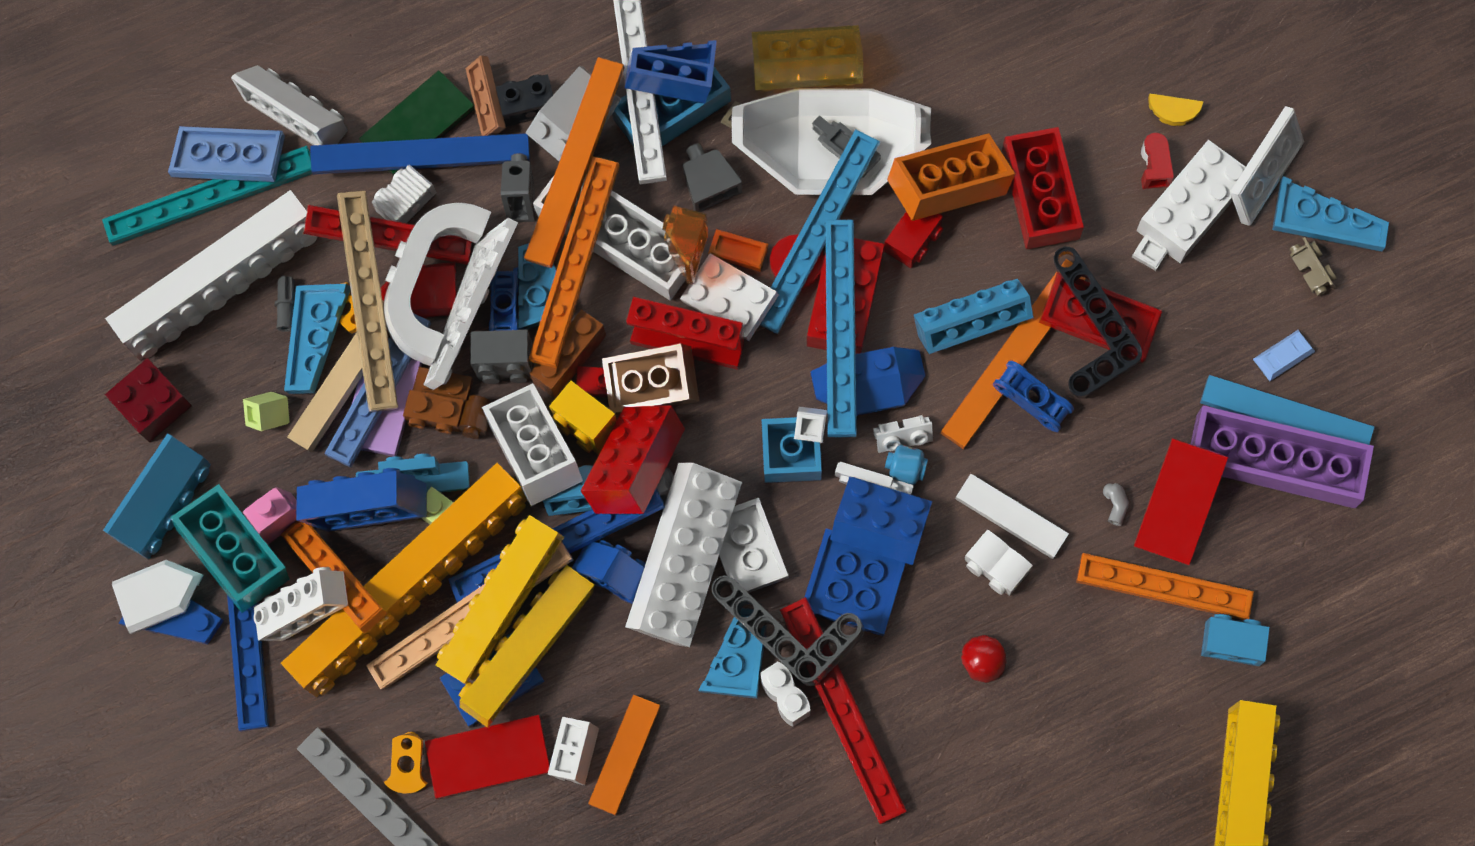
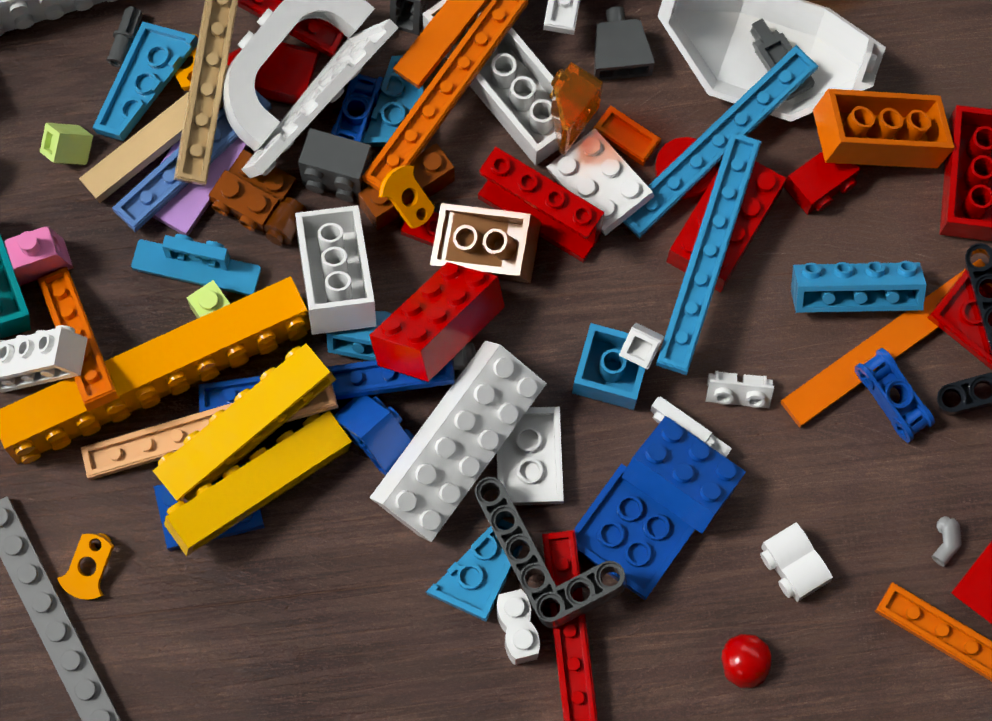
camera: 10 degrees right, 0 degrees up
(361, 500) = (133, 269): blue brick -> none
(487, 757) = (177, 588): red tile -> none
(558, 359) = (395, 184): none -> light orange piece
(573, 750) = (270, 611): white hinge -> none
(582, 417) = (398, 258): yellow brick -> none
(624, 755) = (323, 634): orange tile -> none
(883, 379) = (736, 322): blue wedge -> none
(906, 464) = (732, 423): dark azure head -> none
(1011, 516) = (828, 517): white tile -> none

